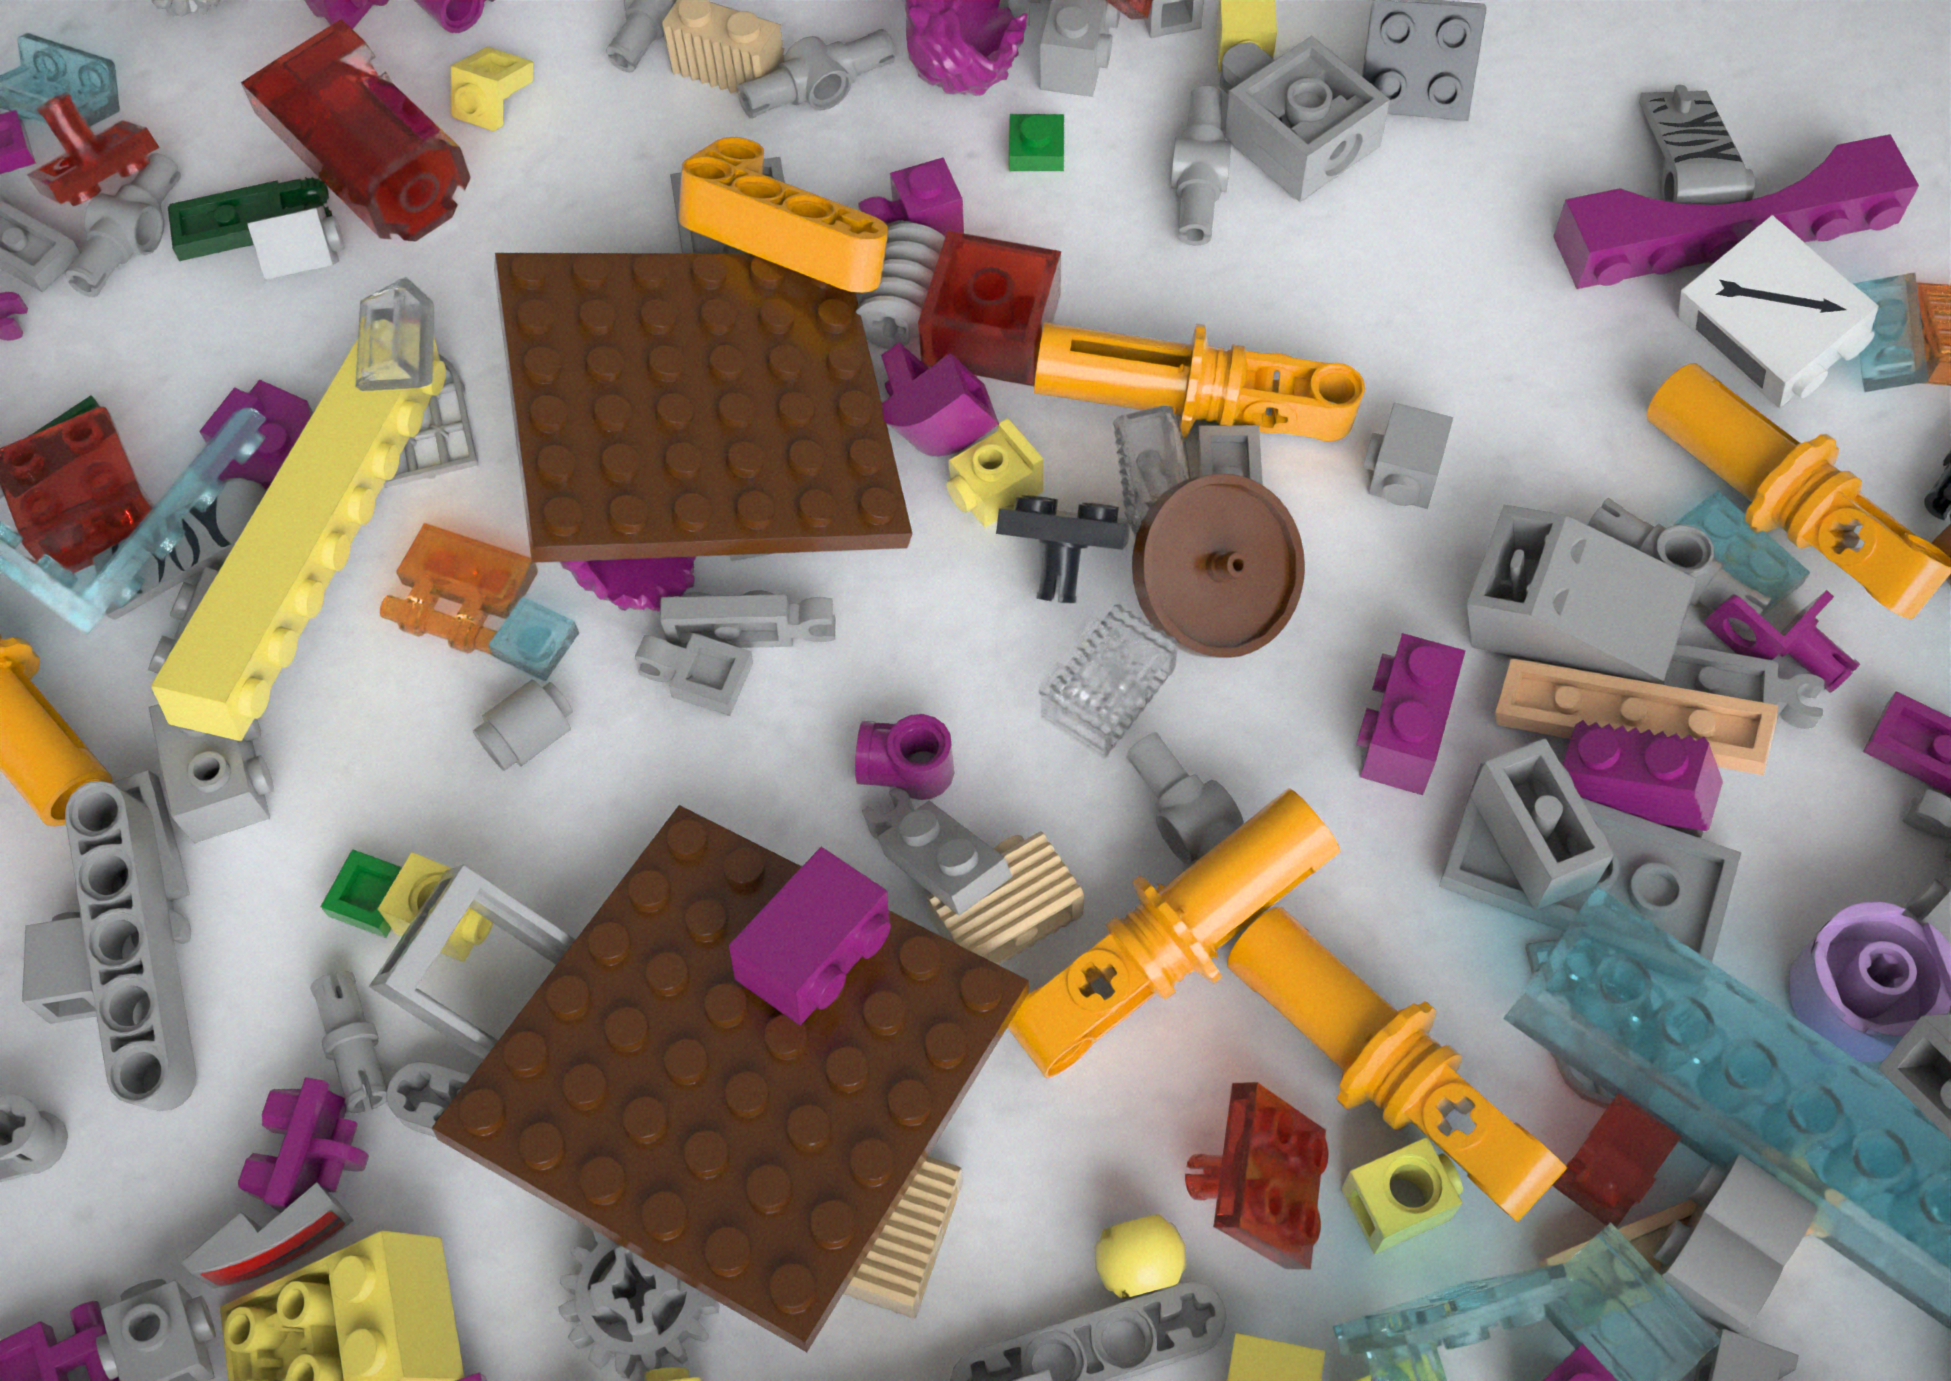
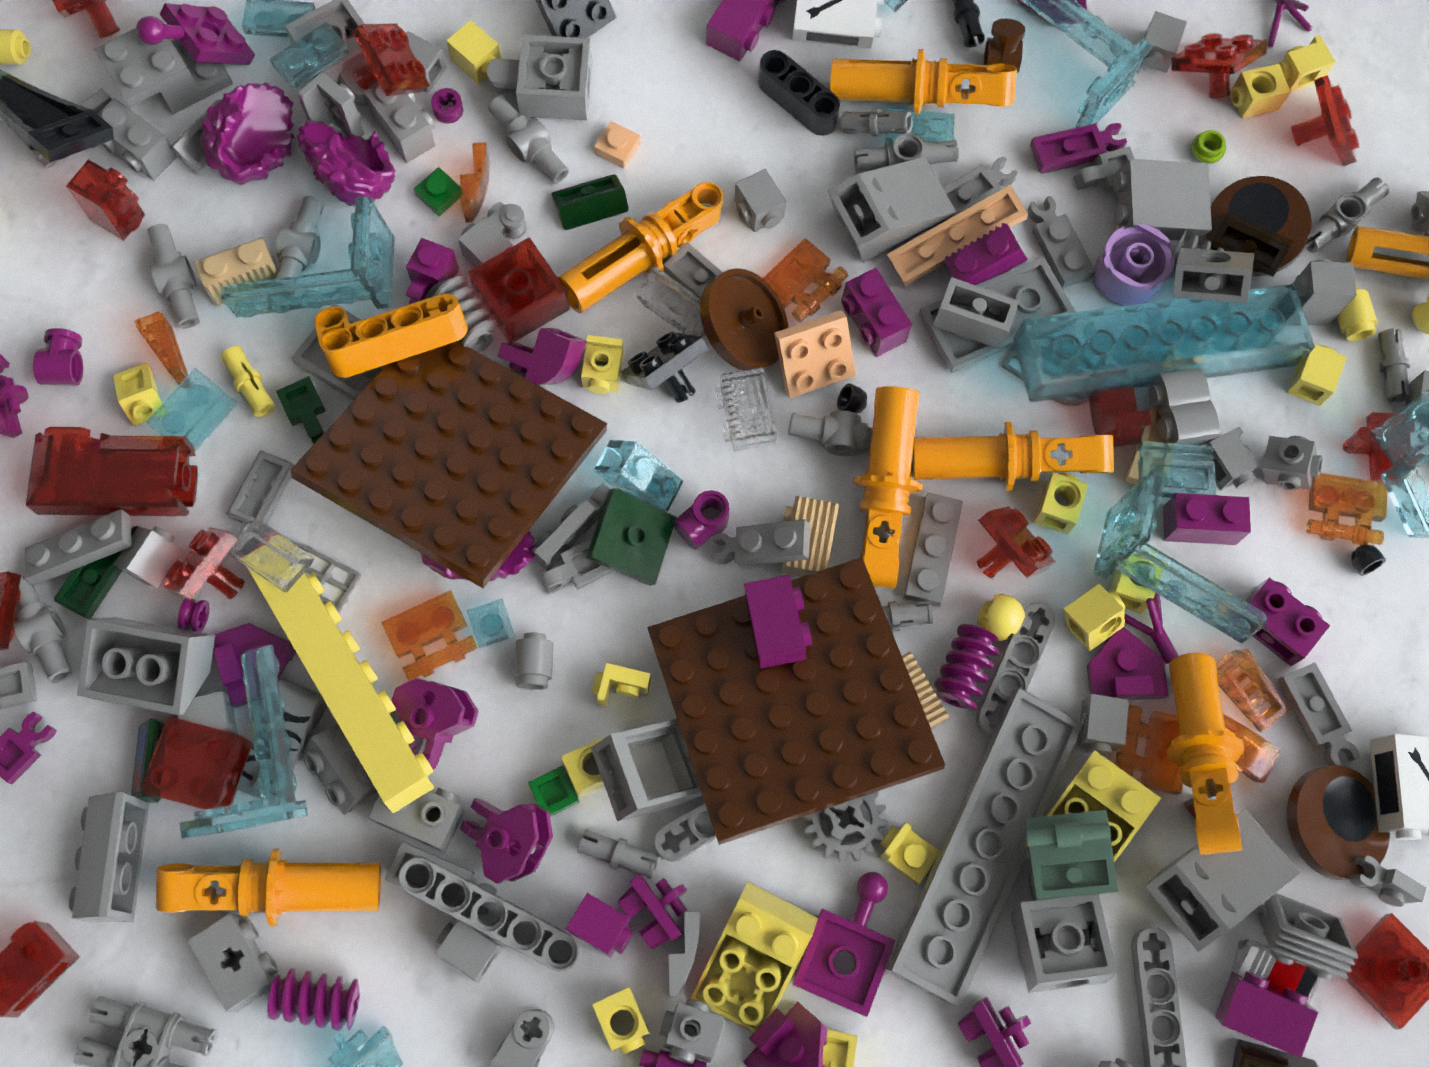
camera: 55 degrees left, 10 degrees up
(98, 1211) = (605, 1011): none -> light yellow brick
(154, 449) = (212, 711): none -> light grey brick
(156, 337) = (143, 664): none -> light grey slope
(210, 1090) = (600, 926): none -> magenta brick
(247, 173) = (78, 547): none -> light grey plate
(253, 885) = (510, 839): none -> magenta hinge
(261, 330) = (193, 615): none -> magenta bush
(325, 294) = (204, 566): none -> clear red plate
(340, 672) = (434, 714): none -> magenta hinge
(466, 284) = (261, 489): none -> light grey plate
(515, 146) = (193, 410): none -> clear light blue plate
(566, 61) = (163, 342): none -> clear orange slope
(578, 833) = (626, 680): none -> light yellow bracket
(592, 189) = (247, 381): none -> light yellow pin
(629, 226) = (303, 405): none -> dark green plate
(793, 692) = (631, 537): none -> dark green plate
(842, 141) = (366, 279): none -> clear light blue bracket
(890, 634) = (638, 473): none -> clear light blue slope
(1009, 1114) = (908, 614): none -> light grey pin
(1016, 1272) = (965, 665): none -> magenta piece
(1028, 220) = (488, 236): none -> light grey brick
(1079, 166) = (475, 185): none -> clear orange slope
(1152, 62) = (443, 97): none -> magenta bush
(1157, 1082) = (933, 549): none -> light grey plate
(1198, 292) = (590, 201): none -> dark green slope
(1258, 790) = (852, 399): none -> black hinge
(1265, 686) = (815, 354): none -> light nougat plate
(1306, 256) = (617, 144): none -> light nougat plate
(1363, 583) = (797, 272): none -> clear orange plate
(1609, 375) = (791, 79): none -> black beam
(1678, 490) = (876, 122): none -> light grey pin
(1791, 869) = (1060, 245): none -> light grey plate
(1798, 639) = (975, 149): magenta bracket -> none

